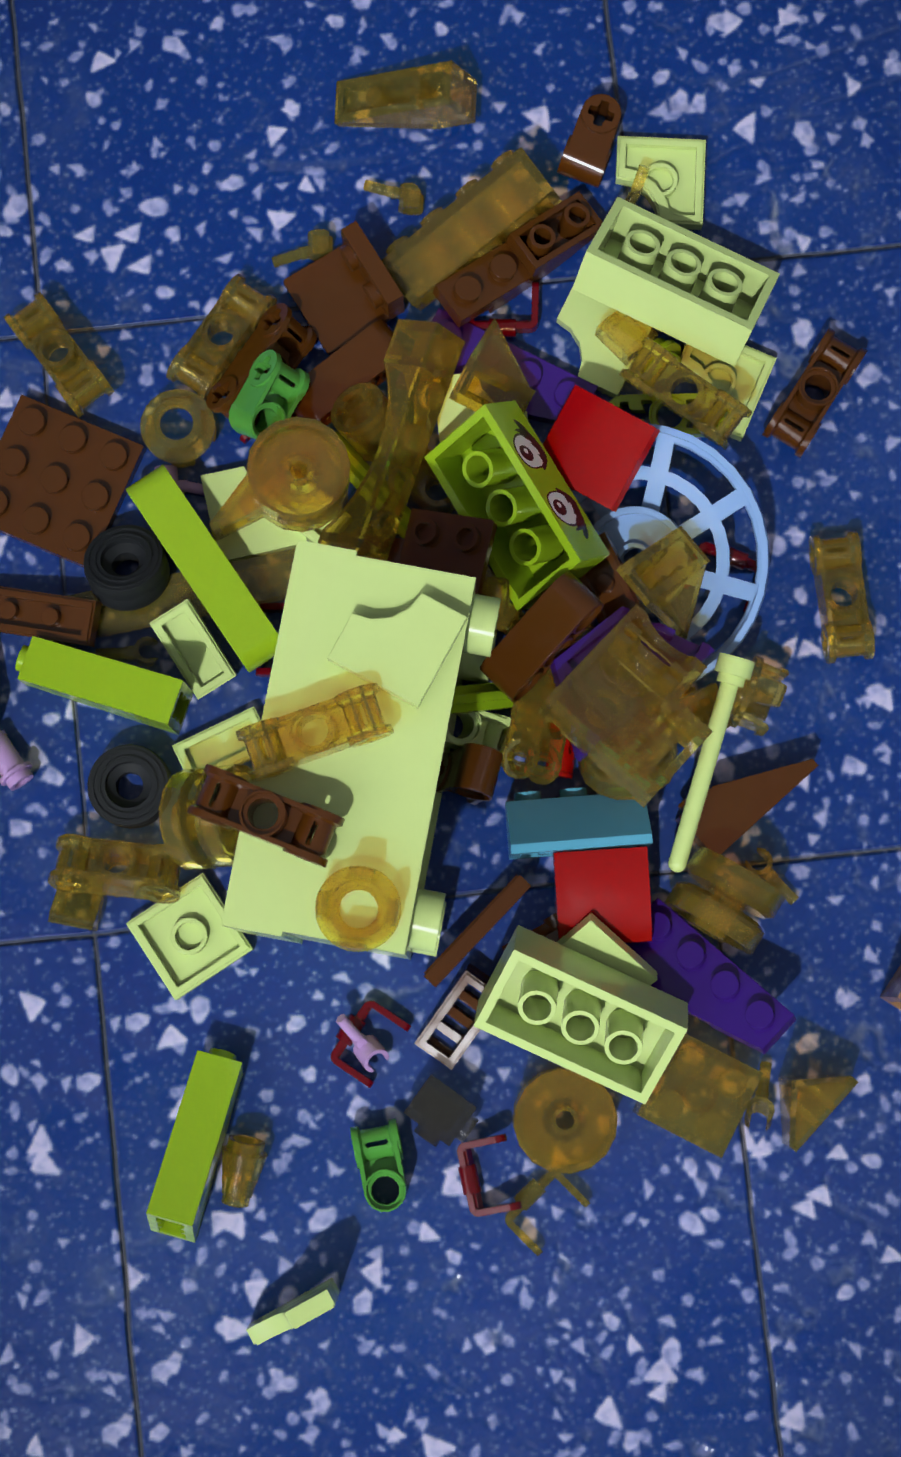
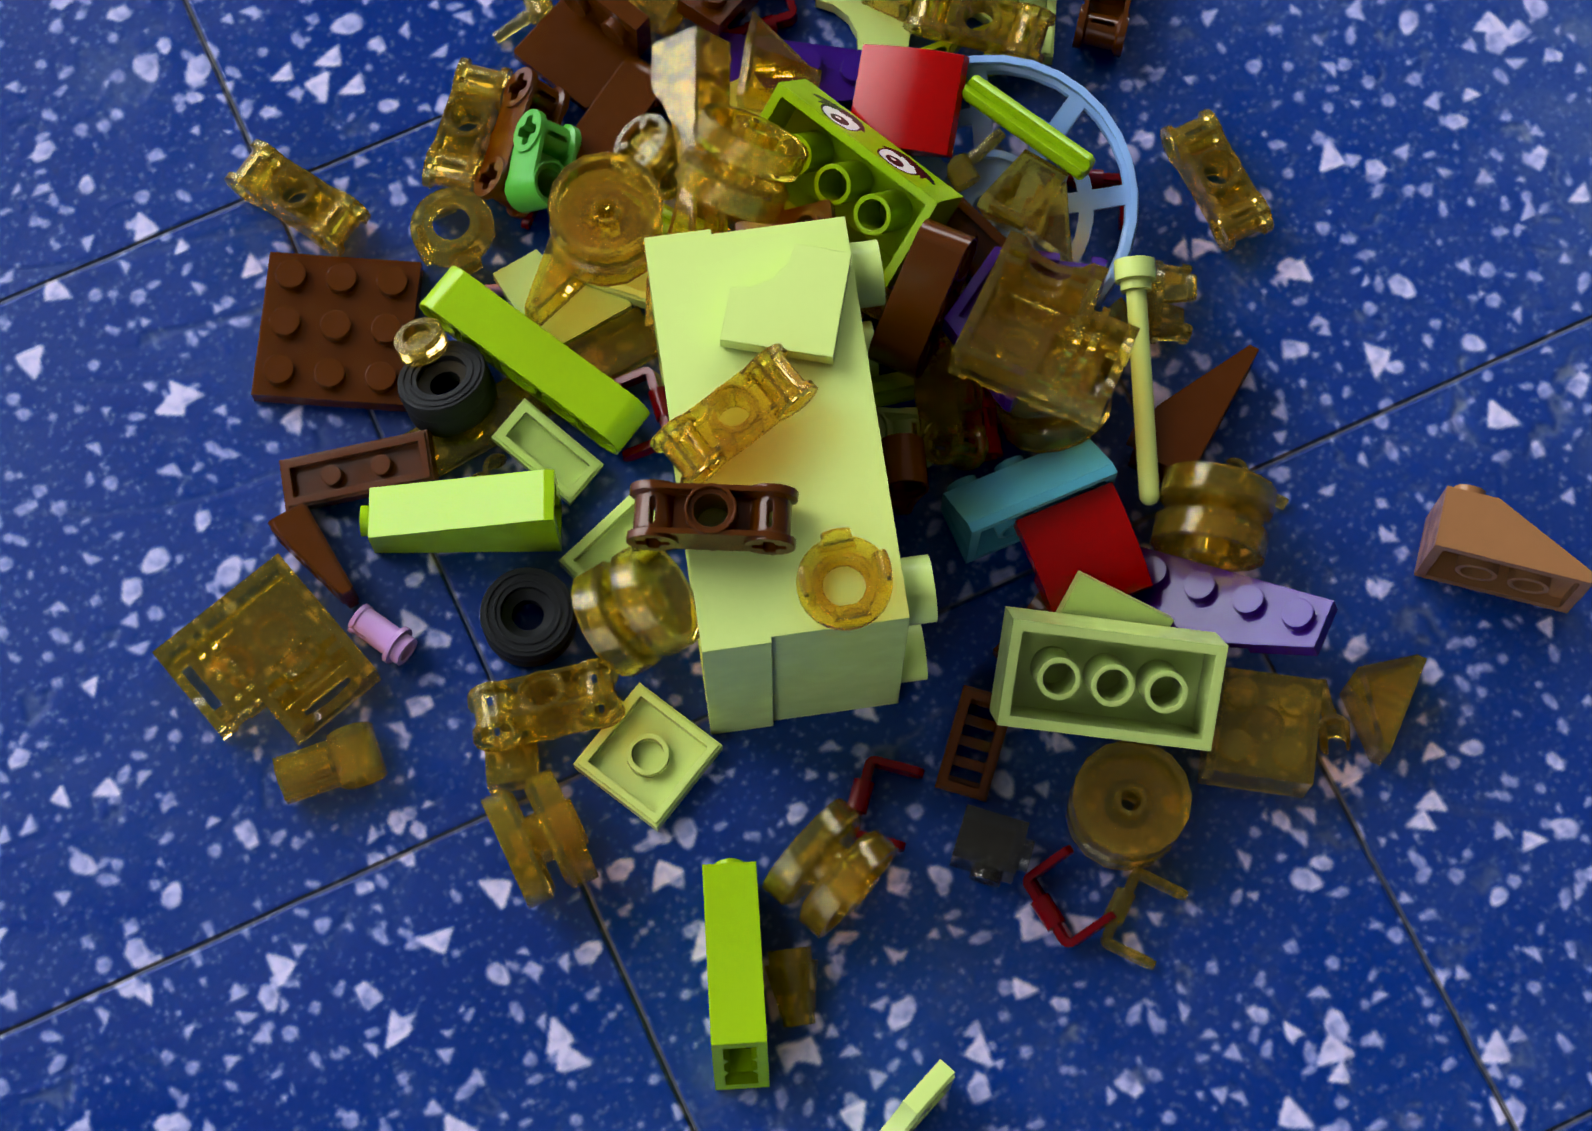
camera: 20 degrees left, 10 degrees down
(71, 983) = (541, 837): none -> clear yellow wheel
(117, 521) = (420, 342): none -> clear yellow tile
(300, 1091) = (823, 861): none -> clear yellow wheel
(364, 1046) = (881, 806): lavender hand -> none
(380, 1161) = (941, 917): bright green piece -> none
(426, 468) = (741, 163): none -> clear yellow wheel
(476, 930) = (959, 643): reddish brown tile -> none
(621, 526) = (961, 167): none -> clear yellow hand
(689, 508) = (1028, 127): none -> lime axle

